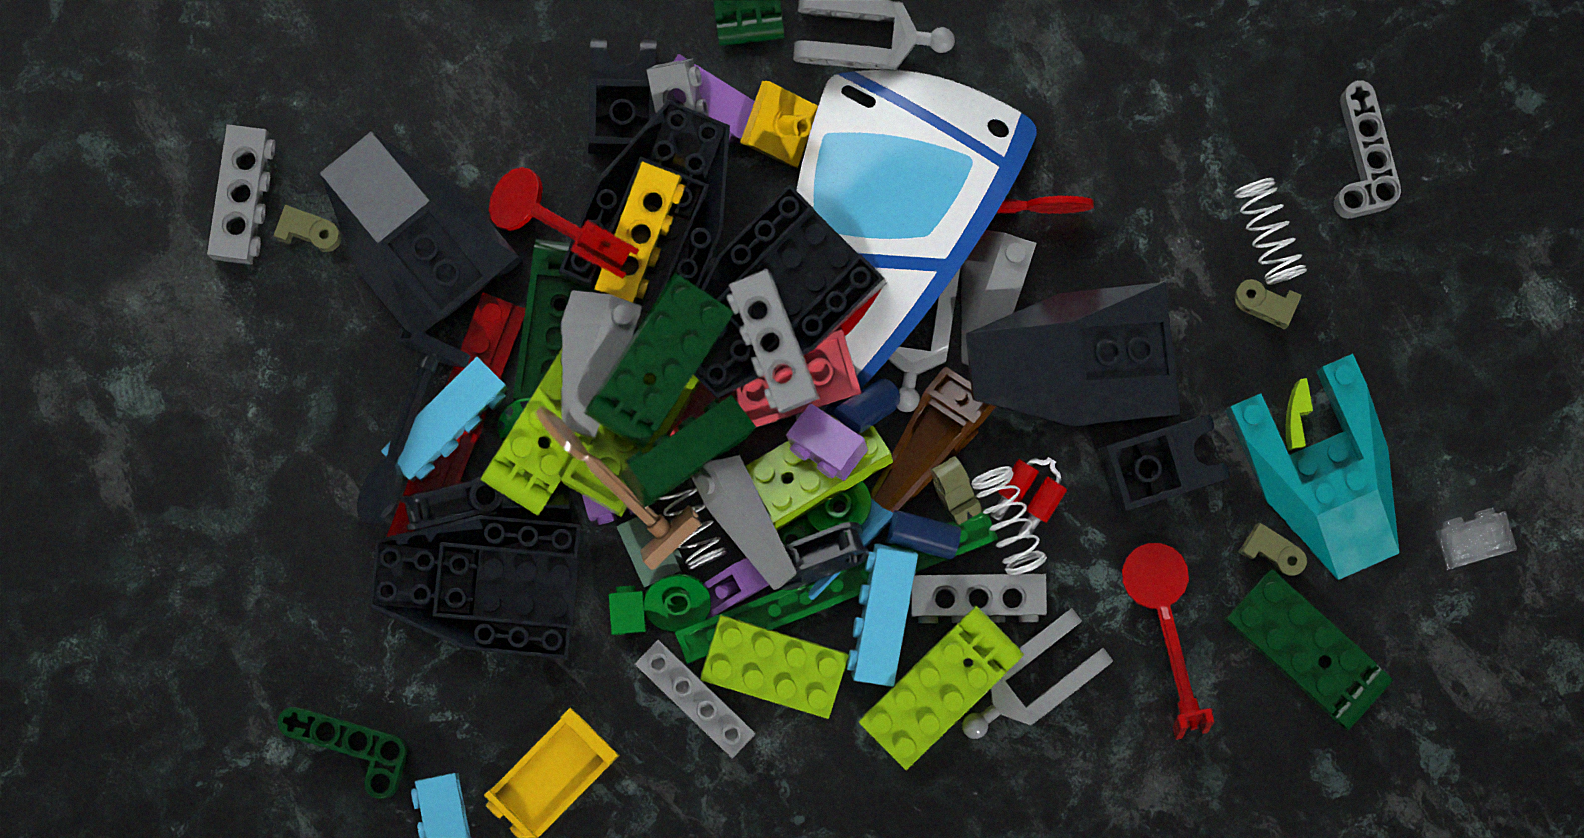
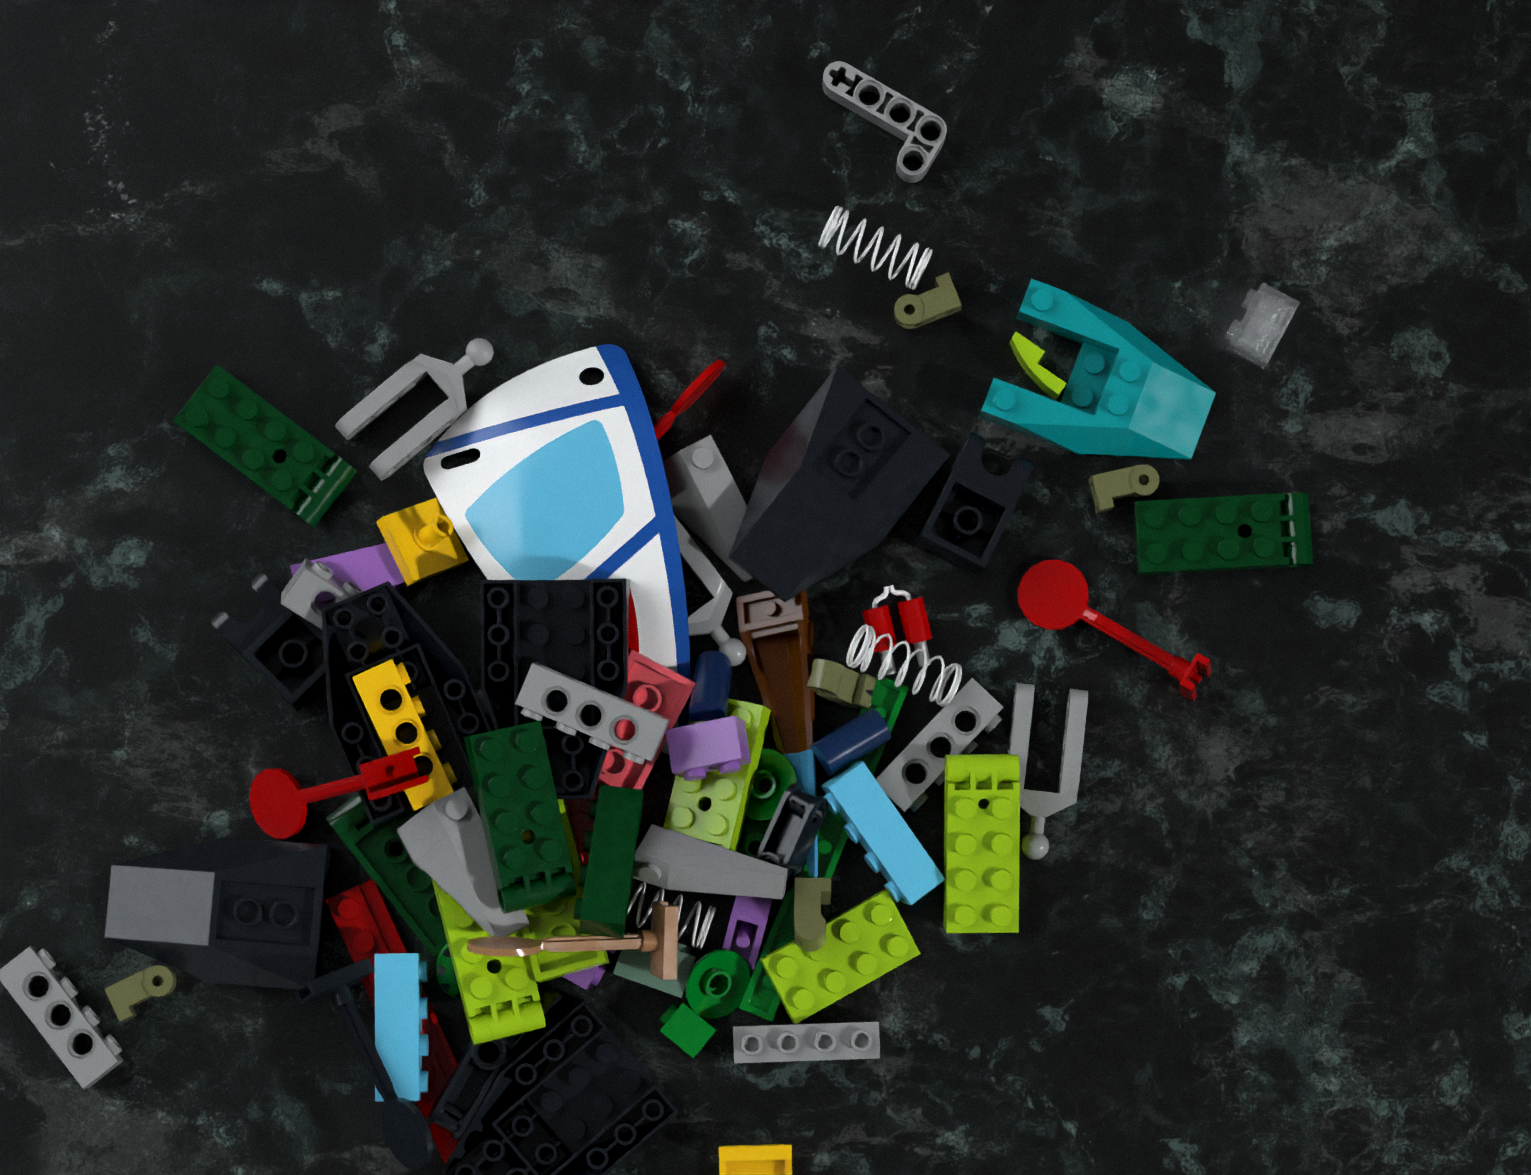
camera: 50 degrees left, 0 degrees up
(776, 621) = (808, 921): none -> olive leg

